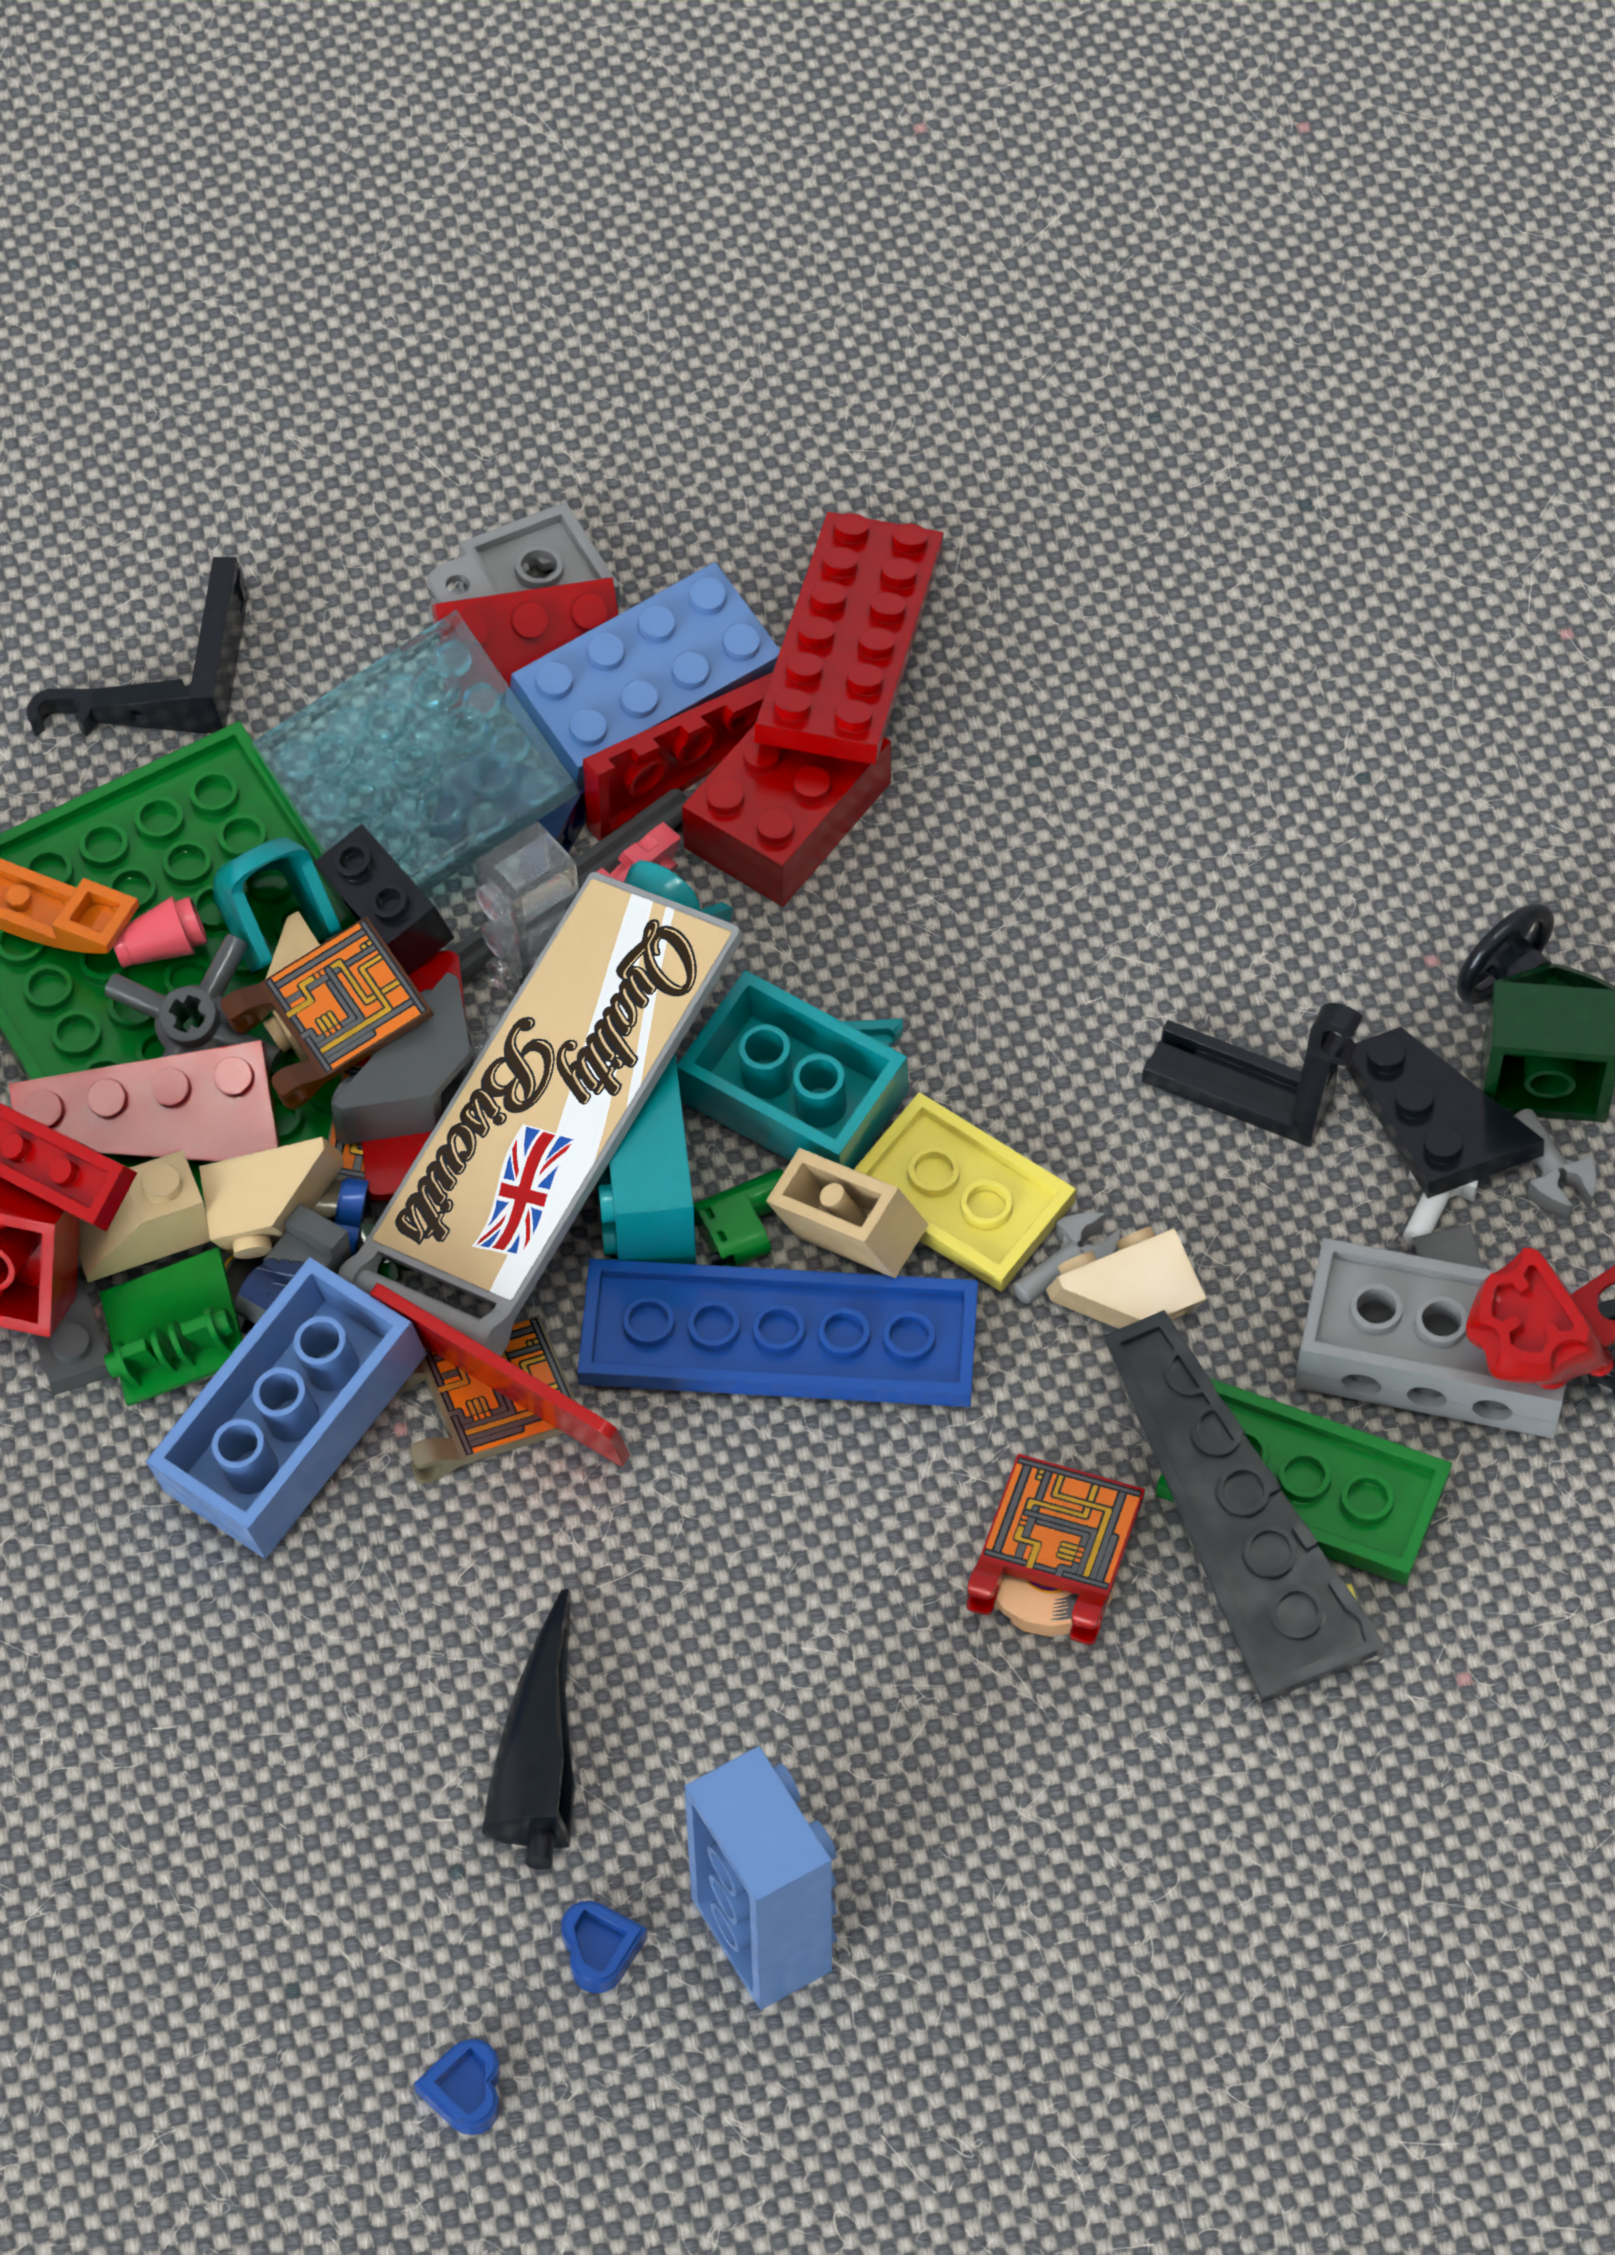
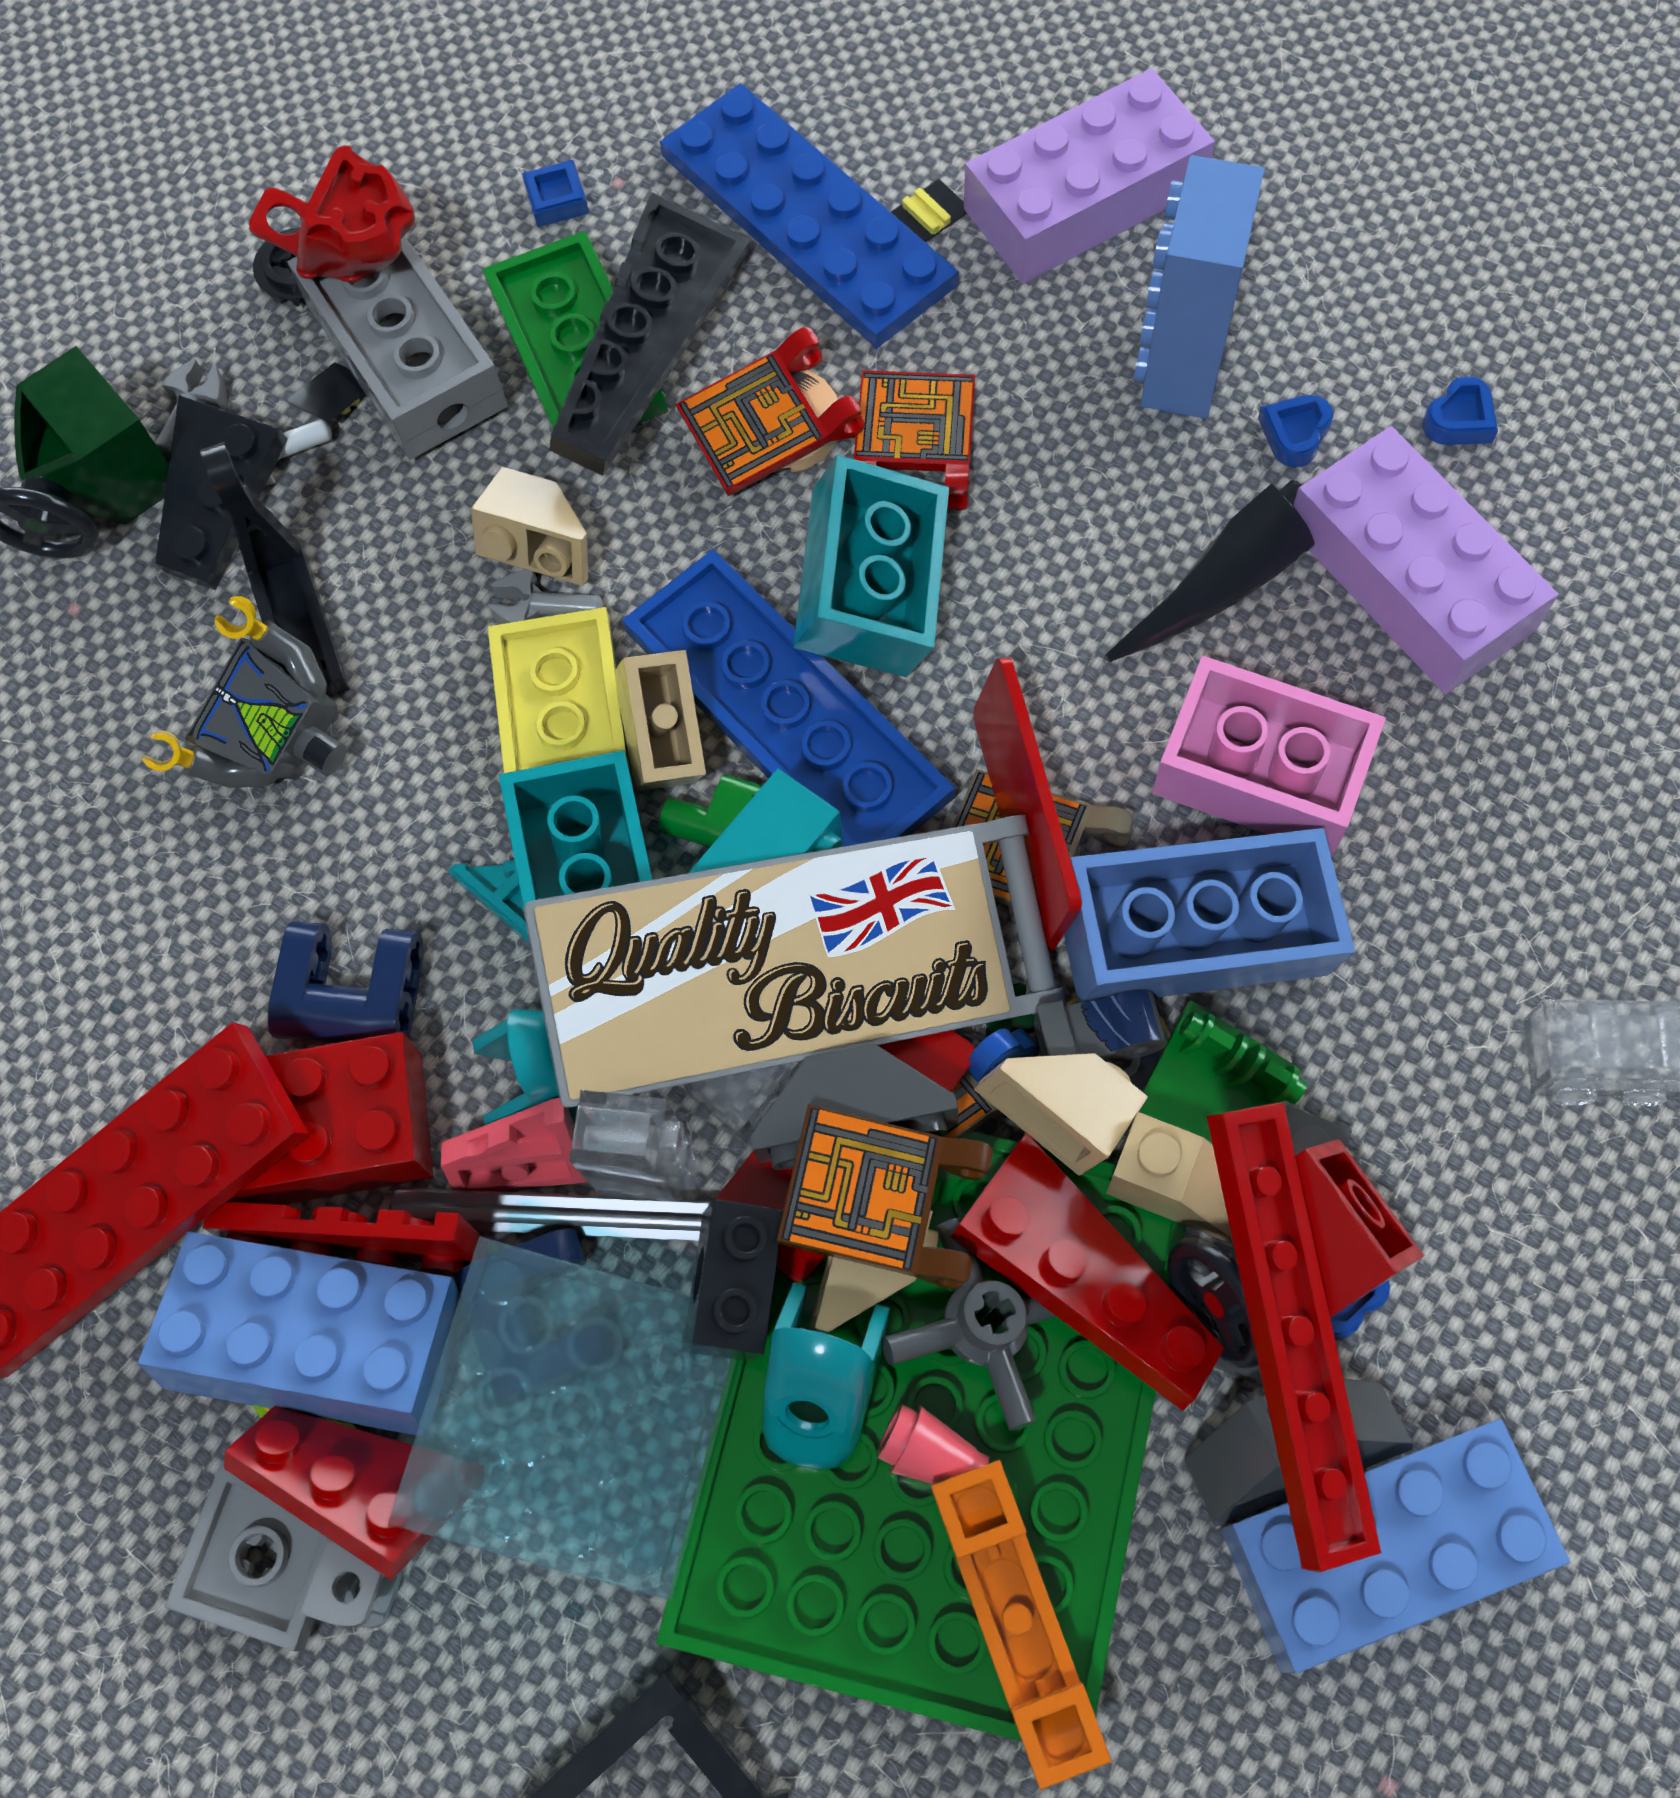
camera: 130 degrees left, 10 degrees up
(351, 1586) = (1267, 753): none -> bright pink brick
(376, 1876) = (1421, 560): none -> lavender brick
(813, 1464) = (872, 567): none -> teal brick
(886, 850) = (316, 1012): none -> dark blue connector
(933, 1661) = (919, 425): none -> flag
(1023, 2021) = (1083, 175): none -> lavender brick
(1151, 1890) = (930, 210): none -> piece
(1155, 976) = (262, 714): none -> dark grey torso
(1254, 1785) = (809, 215): none -> blue plate
(1498, 1610) = (555, 193): none -> blue tile

